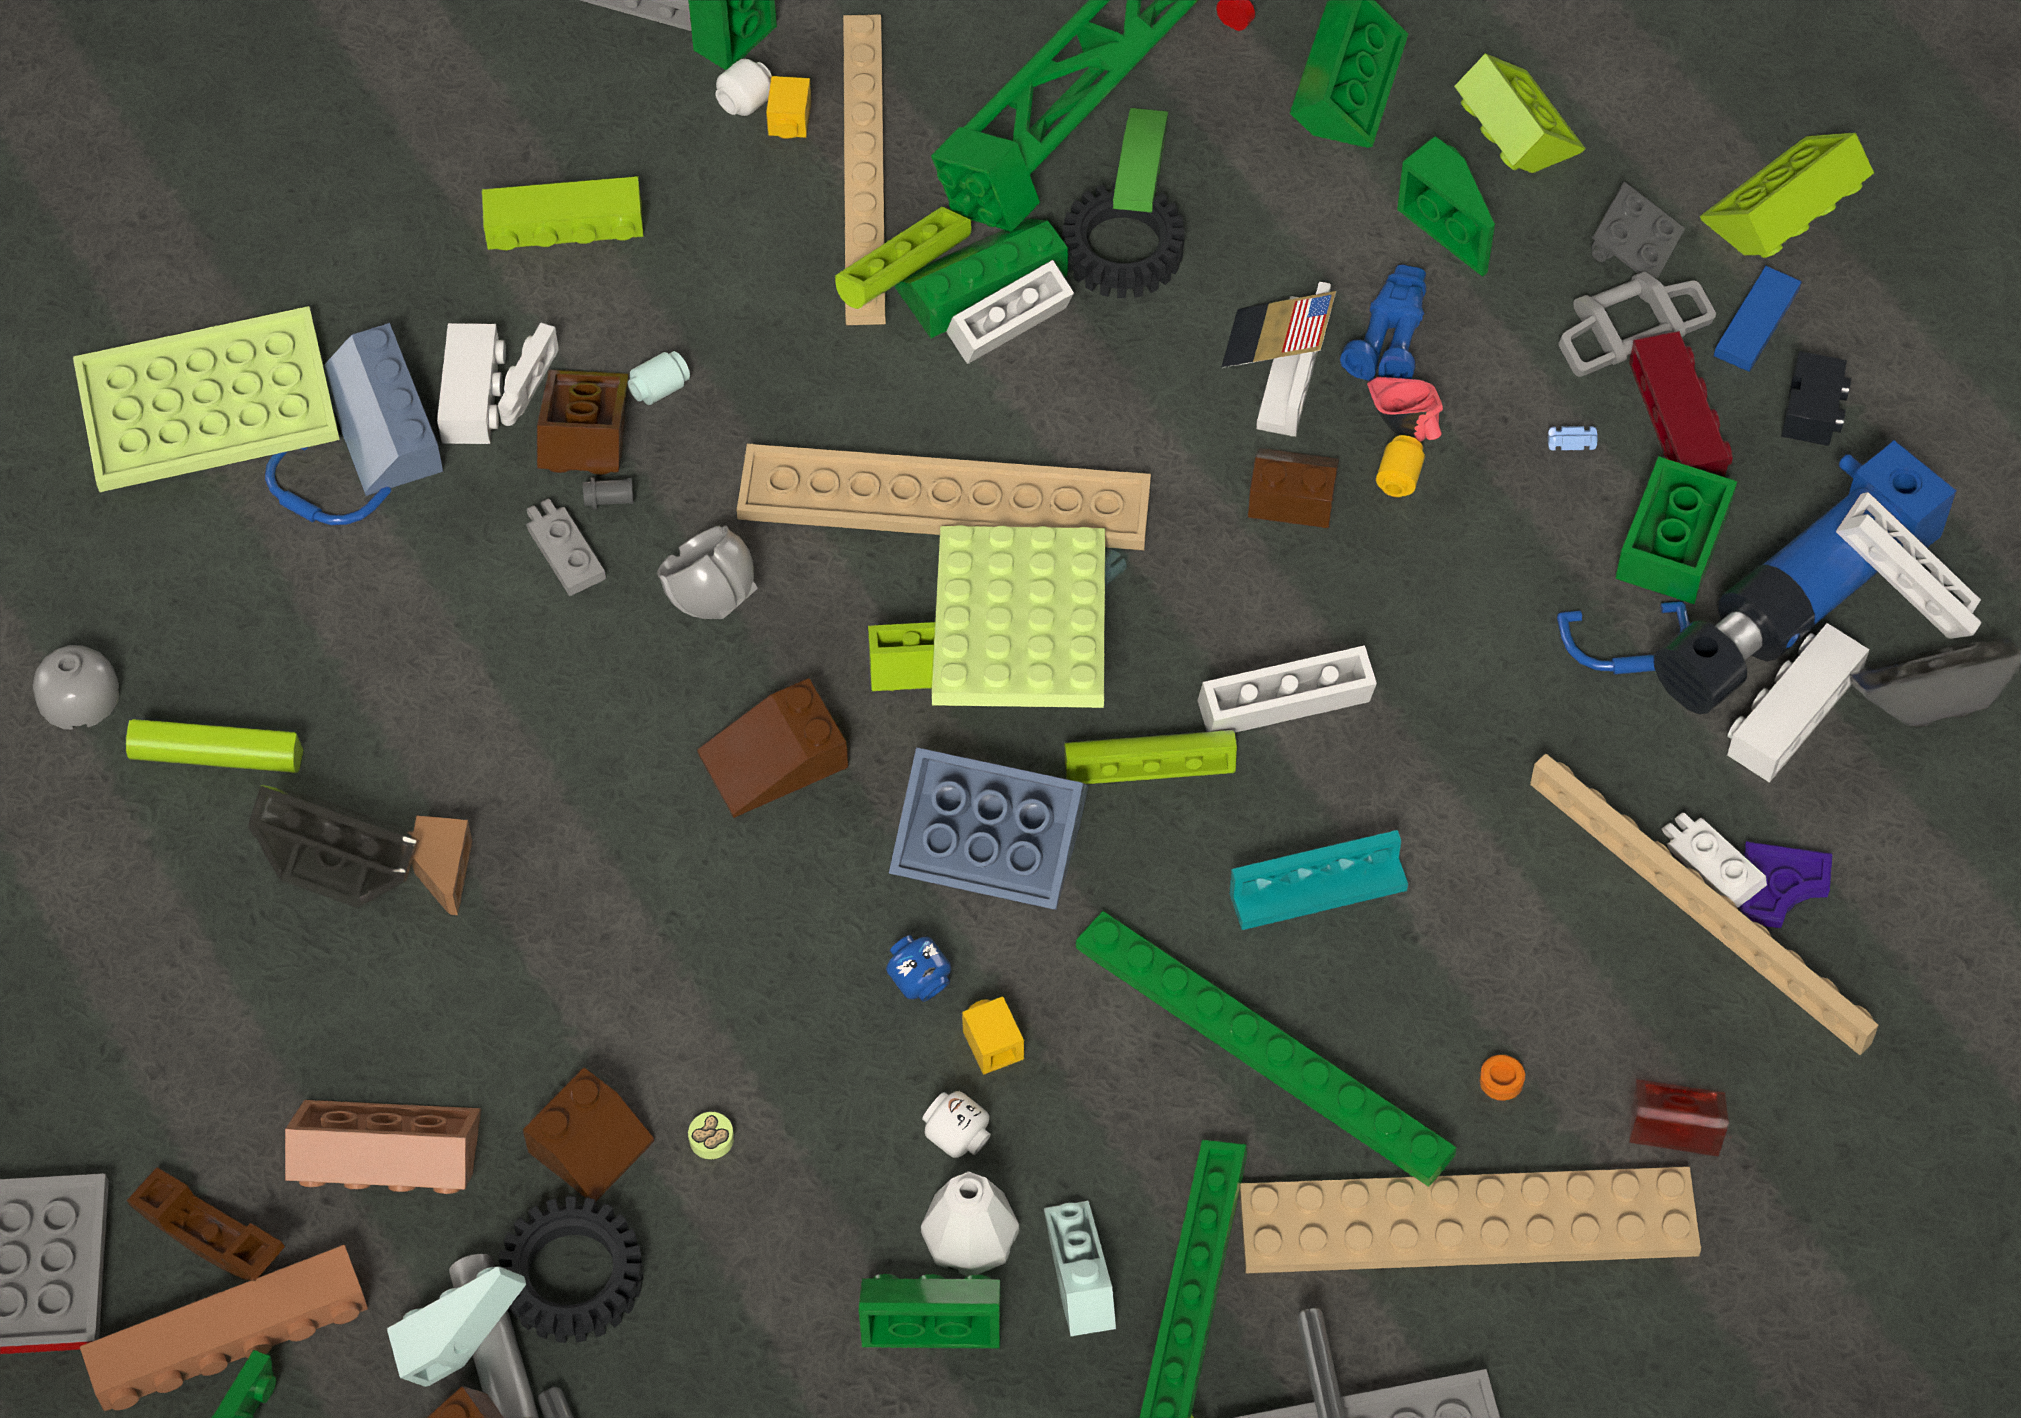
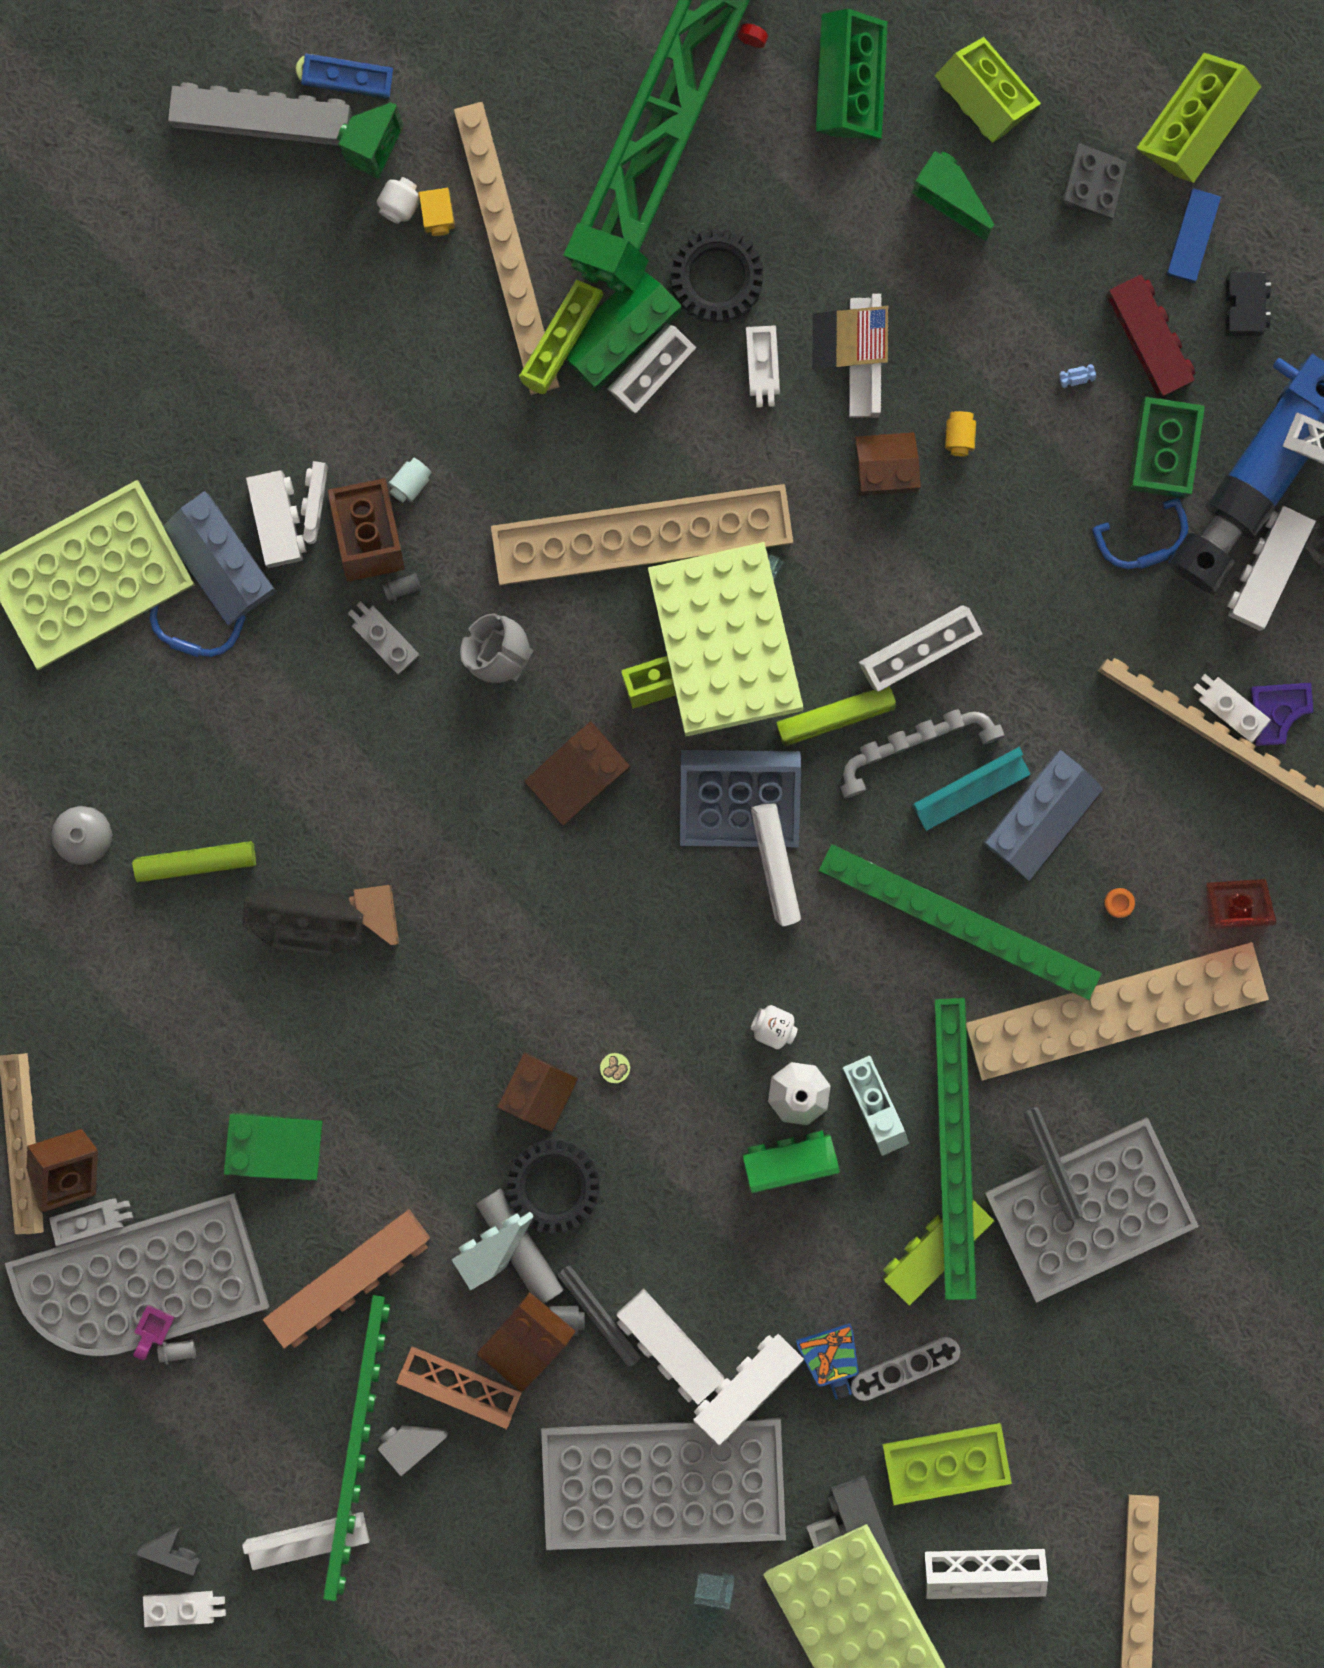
camera: 10 degrees left, 30 degrees up
(182, 1126) = (273, 1147): none -> green slope
(204, 1228) = (312, 1214): reddish brown slope -> none
(381, 1145) = (405, 1127): slope -> none
(562, 213) = (296, 350): lime brick -> none
(918, 968) = (720, 918): blue head -> none
(992, 1034) = (780, 954): yellow brick -> none
(1016, 909) = (775, 864): none -> white brick
(1140, 160) = (713, 199): bright green slope -> none
(1152, 846) = (900, 742): none -> light grey bar
(1157, 342) = (763, 363): none -> white hinge
(1395, 307) = (930, 289): blue piece -> none
(1407, 406) = (955, 384): coral hat -> none
(1413, 935) = (1043, 815): none -> sand blue slope
(1594, 317) = (1078, 270): light grey bar -> none

